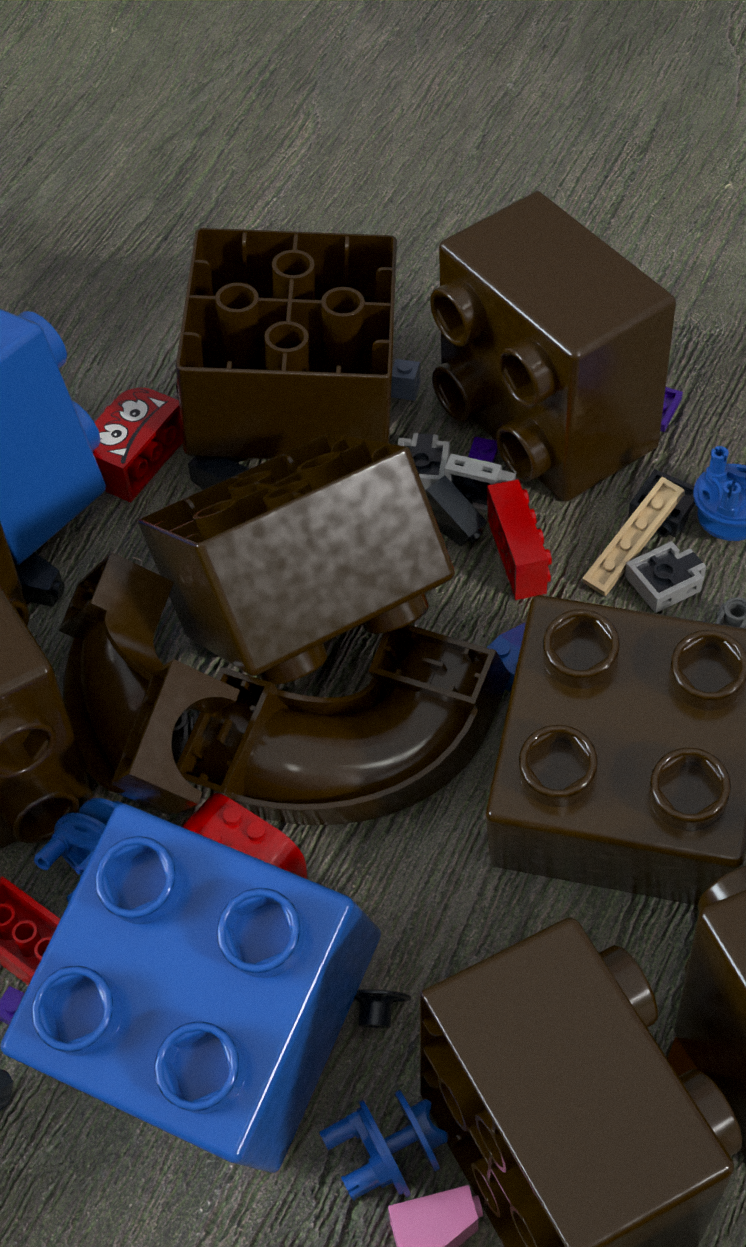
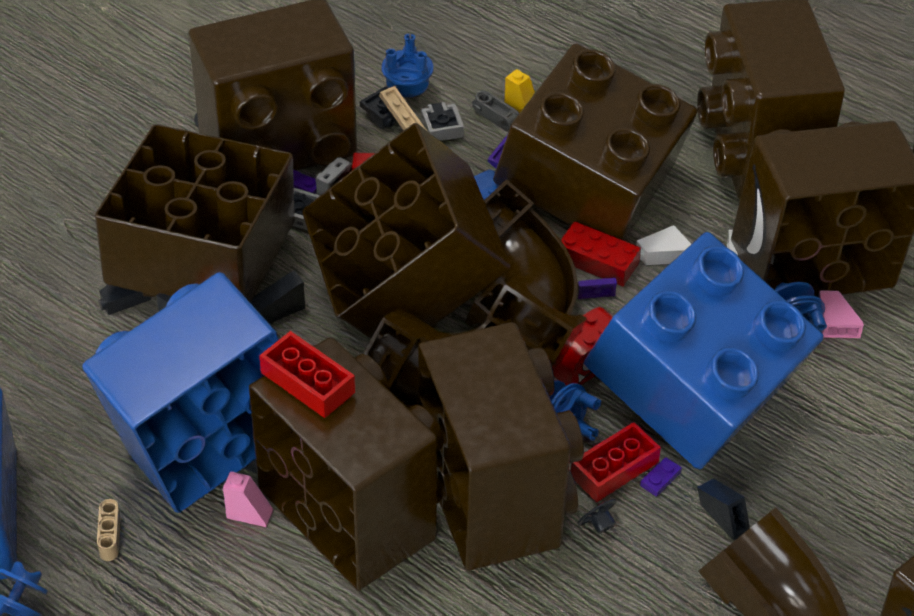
camera: 80 degrees left, 5 degrees down
(380, 839) = (597, 288): none -> dark purple plate
(454, 838) = (601, 253): none -> red brick
(502, 917) = (662, 246): none -> white slope

